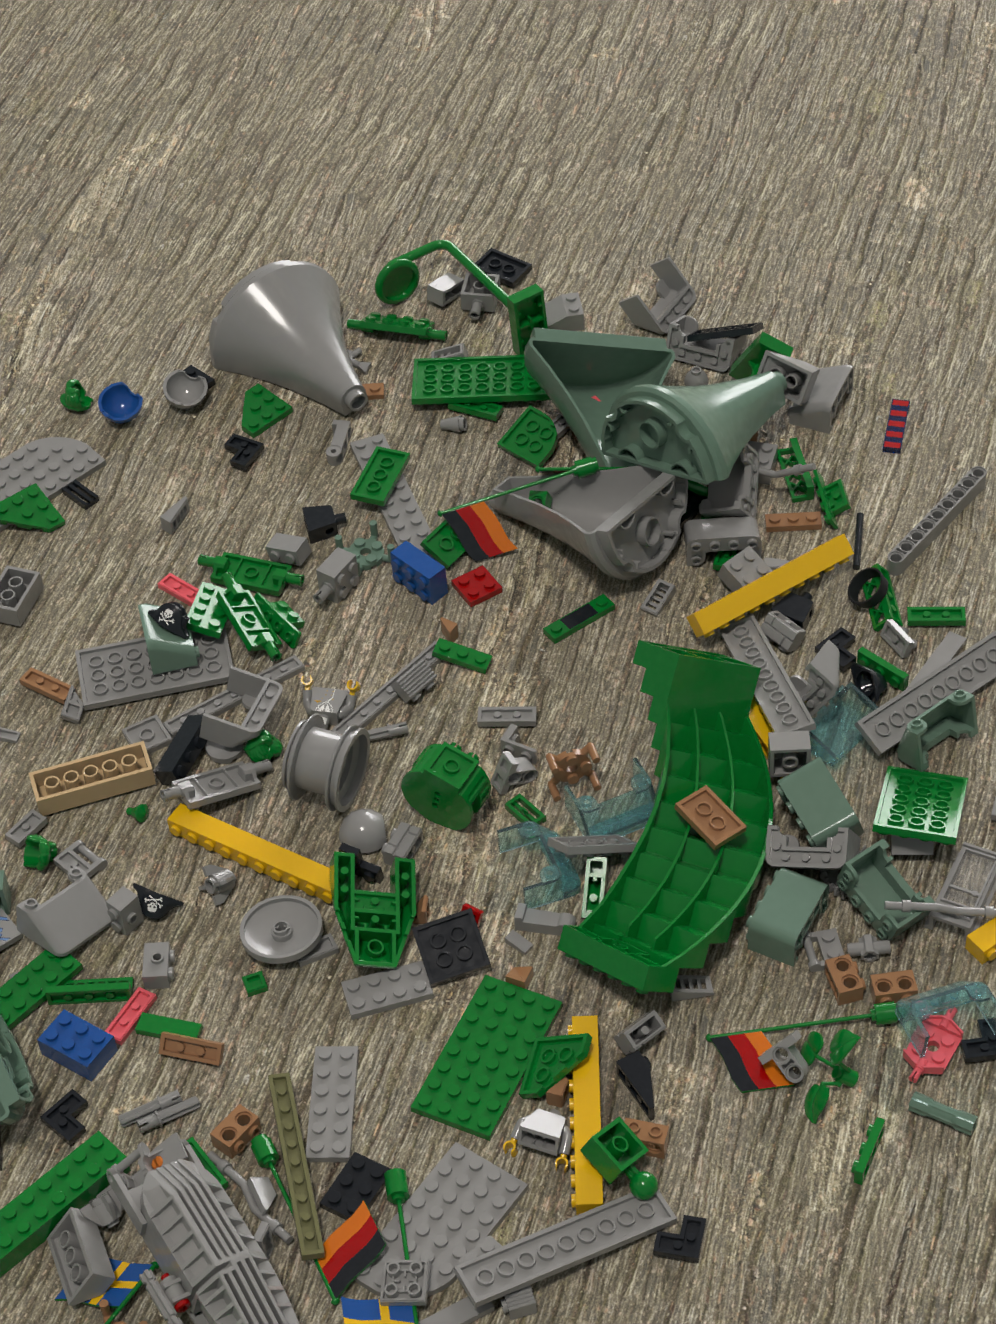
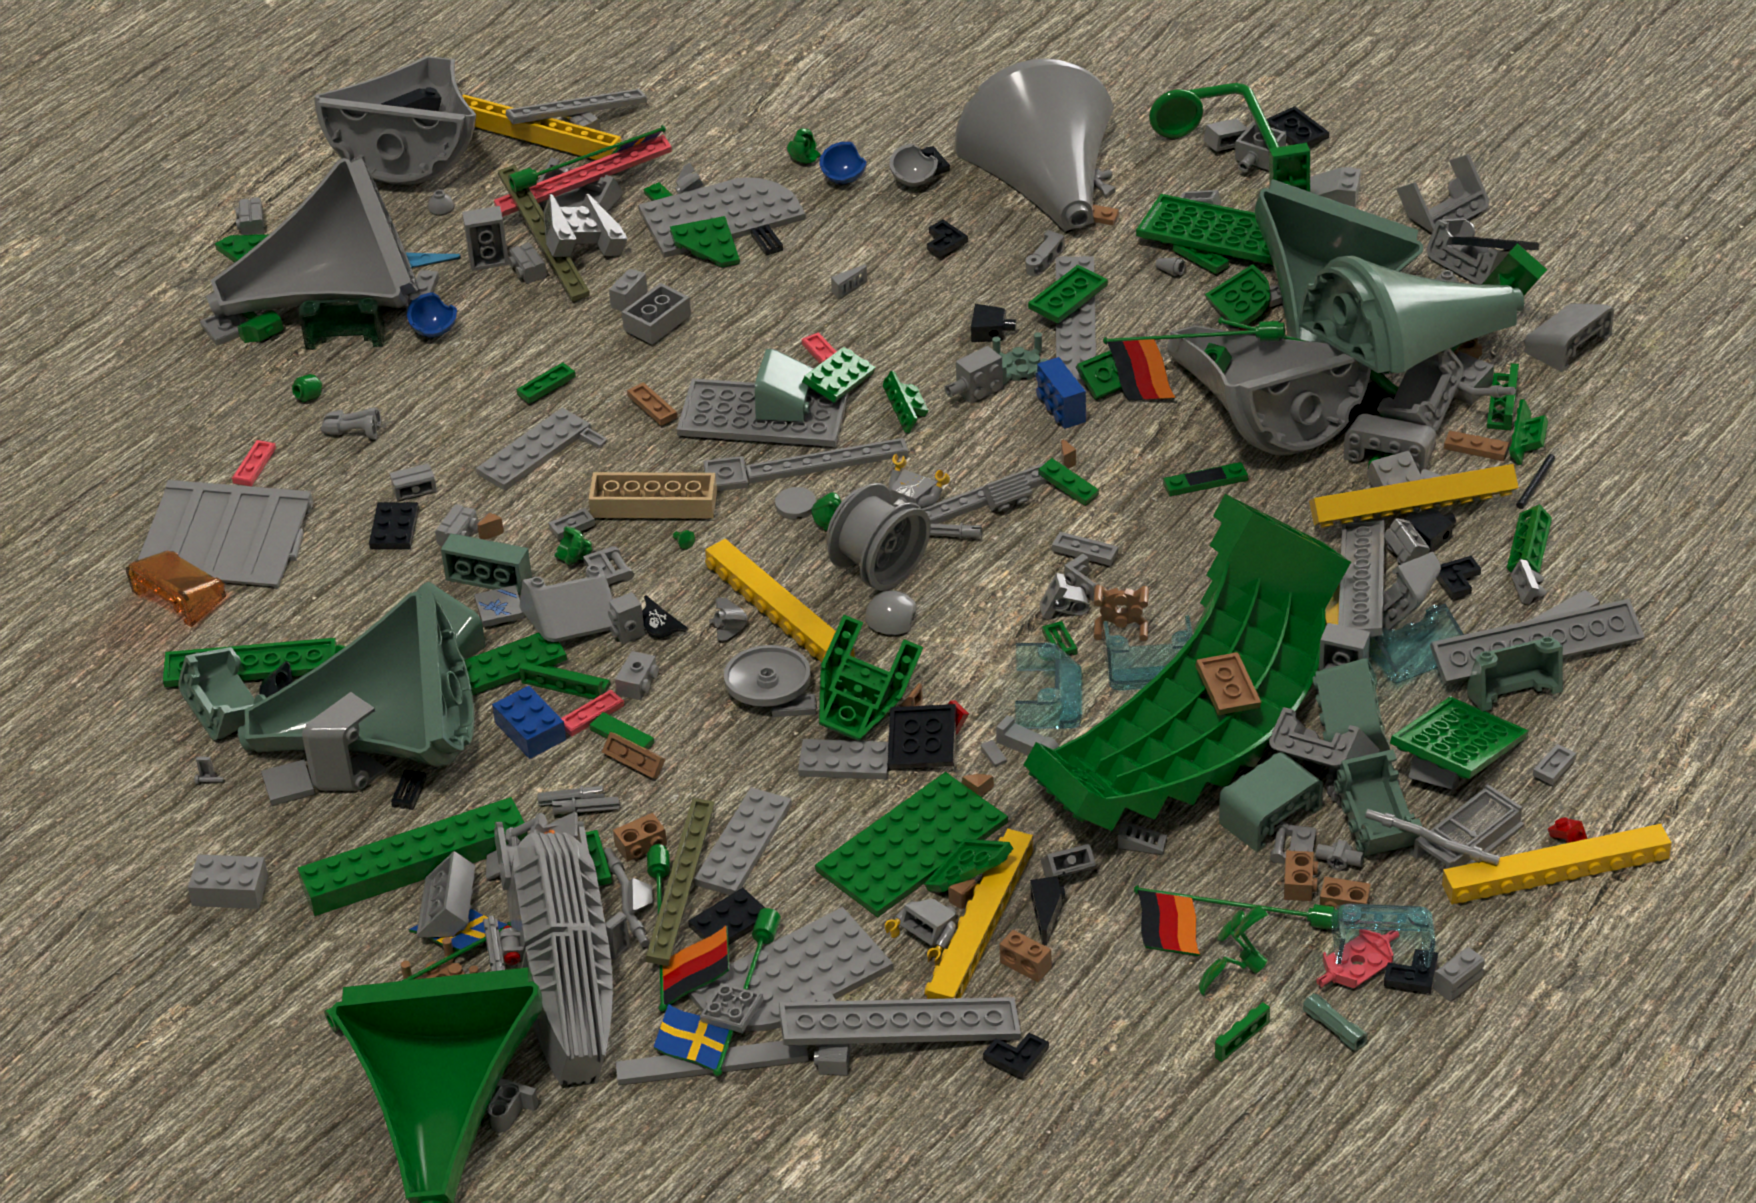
camera: 20 degrees right, 5 degrees down
(61, 1117) = (486, 780): black plate -> none
(72, 707) = (665, 428): light grey tile -> none
(103, 1210) = (483, 866): light grey brick -> none
(172, 617) = (792, 367): black hat -> none
(181, 752) = (753, 493): black brick -> none
(217, 784) = (767, 531): light grey plate -> none
(248, 618) = (871, 391): green plate -> none
(252, 573) = (896, 352): green plate -> none
(254, 983) = (721, 718): green tile -> none
(259, 697) = (847, 464): light grey windscreen -> none
(262, 410) = (983, 205): green plate -> none
(288, 549) = (943, 339): light grey brick -> none
(363, 868) = (870, 643): black plate -> none
(375, 321) = (1185, 167): green plate -> none
(403, 843) = (926, 632): light grey brick -> none
(446, 785) = (985, 588): green piece -> none
(476, 586) = (1117, 422): red plate -> none
(591, 845) = (1099, 681): light grey plate -> none
(595, 883) = (1097, 709): slope -> none
(615, 1153) = (988, 955): green brick -> none
(670, 590) = (1311, 477): light grey slope -> none
(786, 1063) = (1206, 927): light grey tile -> none
(798, 374) = (1541, 299): light grey slope -> none
(859, 580) = (1511, 518): black tyre -> none
(868, 681) = (1472, 613): black hat -> none
(892, 674) = (1492, 604): green plate -> none
(896, 426) = (1637, 382): tile -> none
(936, 521) = (1629, 482): light grey beam -> none
(936, 616) = (1578, 572): green plate -> none

